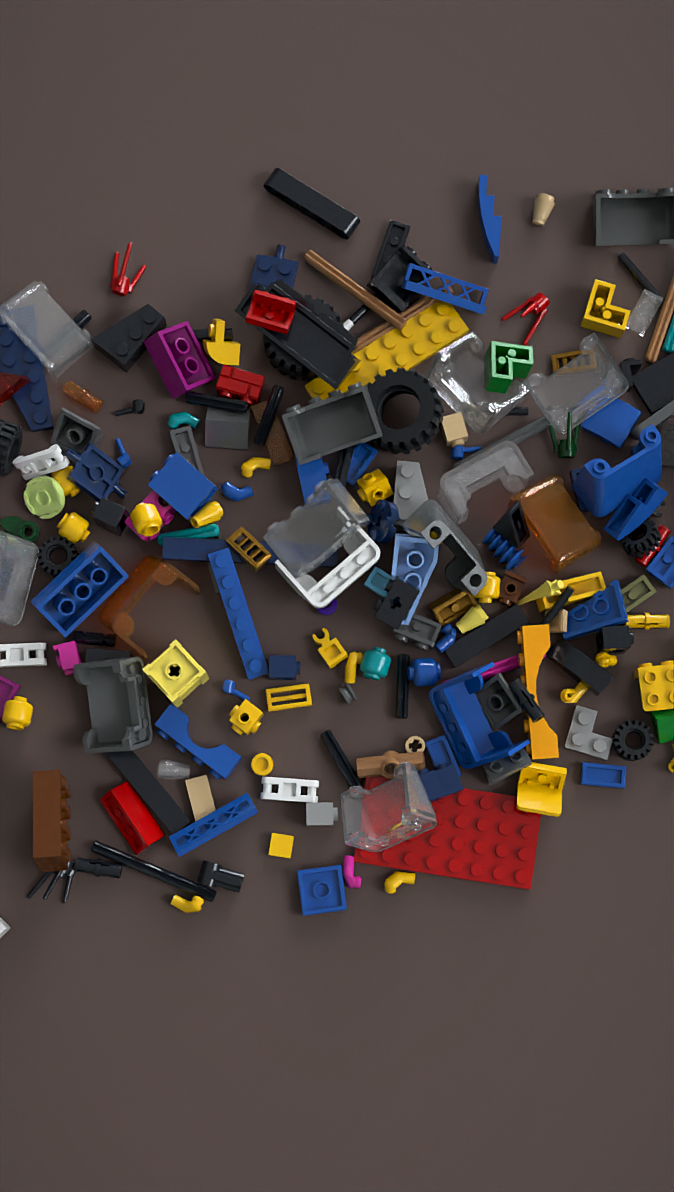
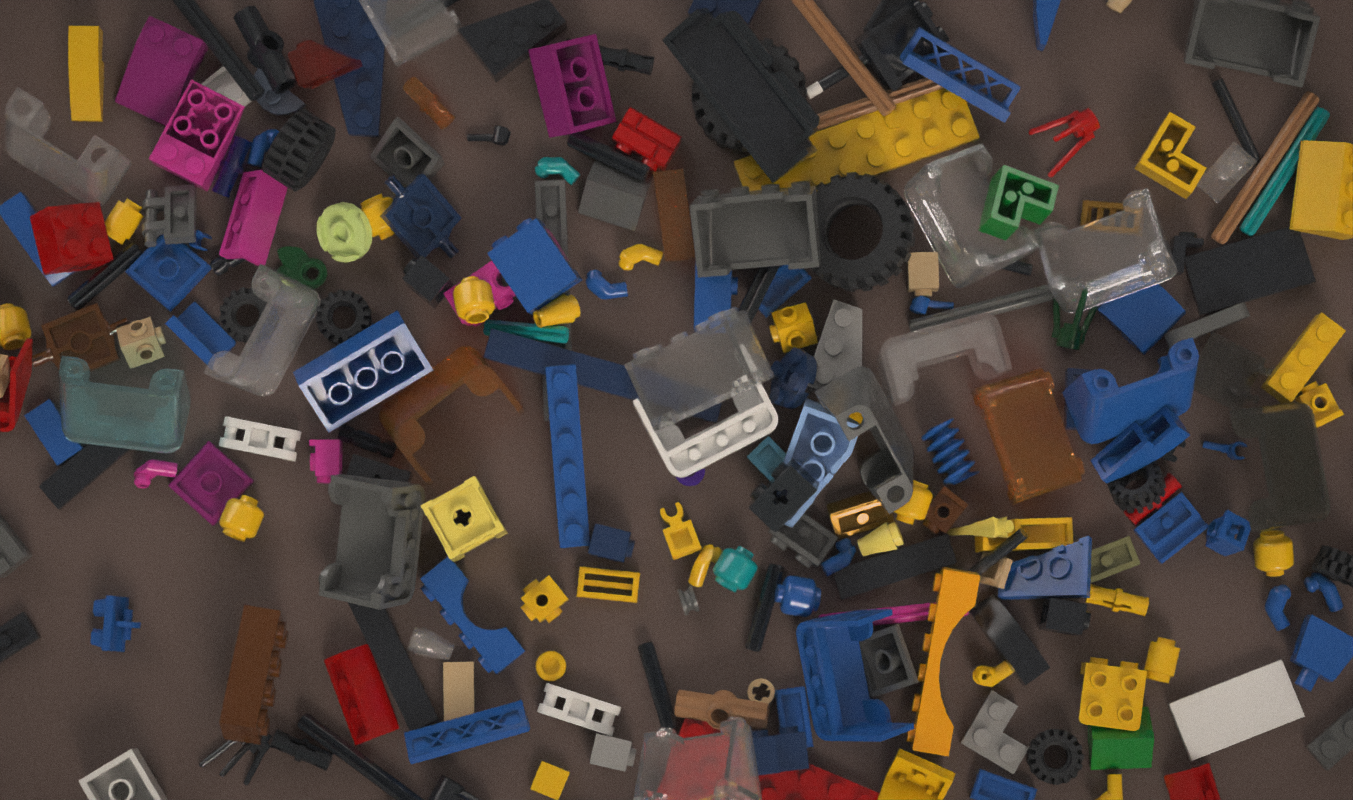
camera: 15 degrees right, 5 degrees up
(41, 463) = (351, 185): white plate -> none
(73, 527) = (374, 283): yellow head -> none
(124, 460) = (464, 204): blue hand -> none
(219, 350) = (629, 85): yellow brick -> none
(228, 687) = (531, 552): blue hand -> none
(266, 555) = (611, 366): pearl gold slope -> none
(268, 415) = (674, 192): black axle -> none
(271, 312) = (711, 56): red bracket -> none
(506, 767) = (864, 754): dark grey bracket -> none
(513, 526) = (967, 429): black slope -> none
(526, 700) = (924, 671): black pin -> none
(604, 659) = (1044, 638): yellow arm -> none

